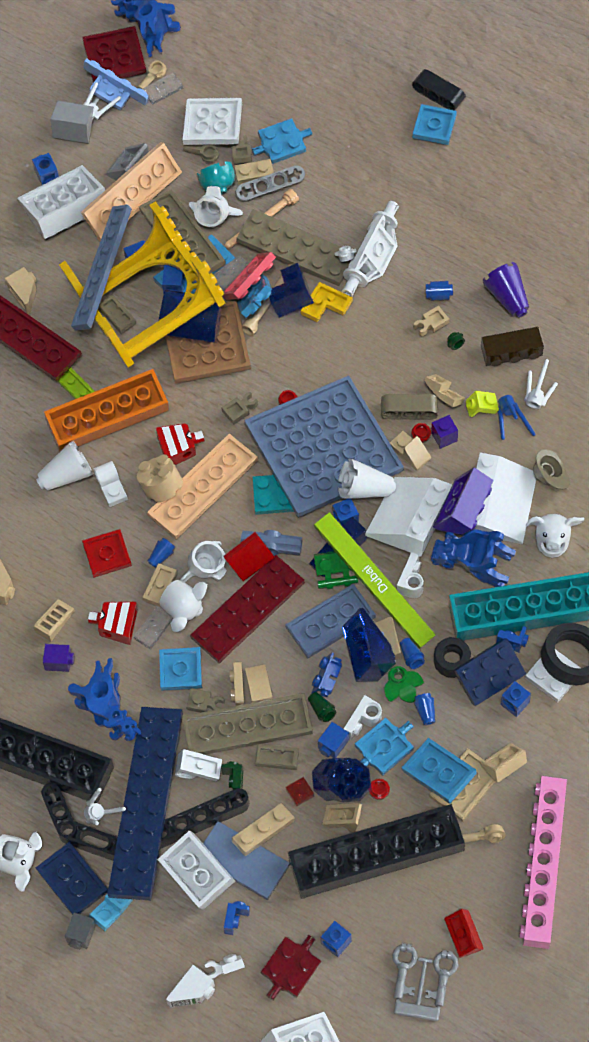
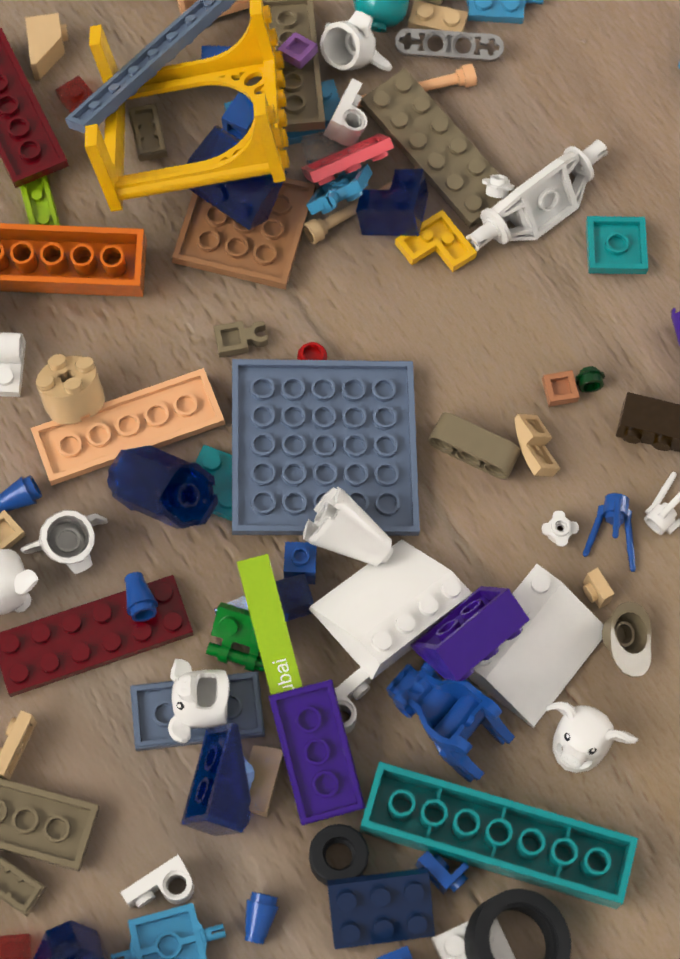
camera: 20 degrees right, 5 degrees up
(59, 311) = (73, 93): none -> clear red plate
(178, 442) = (127, 349): red torso -> none
(185, 225) = (298, 50): none -> medium lavender plate
(234, 254) = (348, 120): none -> white plate
(245, 507) = (162, 486): none -> clear blue brick
(249, 556) = (126, 555): red tile -> none
(258, 683) = (44, 756): tan slope -> none
(267, 574) = (139, 598): none -> blue cone
(277, 542) = (176, 554): sand blue piece -> none
(323, 709) = (113, 841): dark green cone -> none
(329, 667) = (136, 800): blue hinge -> none
(331, 609) = (197, 699): none -> white piece
(333, 740) = (98, 900): blue brick -> none
(404, 687) = (246, 866): green plate -> none
(411, 450) = (444, 510): tan slope -> none
(411, 607) = (316, 752): none -> dark purple tile
(411, 654) = (284, 821): blue cone -> none
(422, 431) = (472, 491): red plate -> none
(431, 257) = (616, 245): none -> teal plate
(432, 319) = (574, 335): tan plate -> none
(439, 290) = (603, 296): blue brick -> none
(441, 353) = (560, 388): none -> nougat plate
(444, 431) = (504, 506): dark purple brick -> none
(481, 402) = (580, 488): neon yellow bracket -> none
(481, 435) = (560, 537): none -> white plate
(520, 452) = (597, 588): none -> tan plate

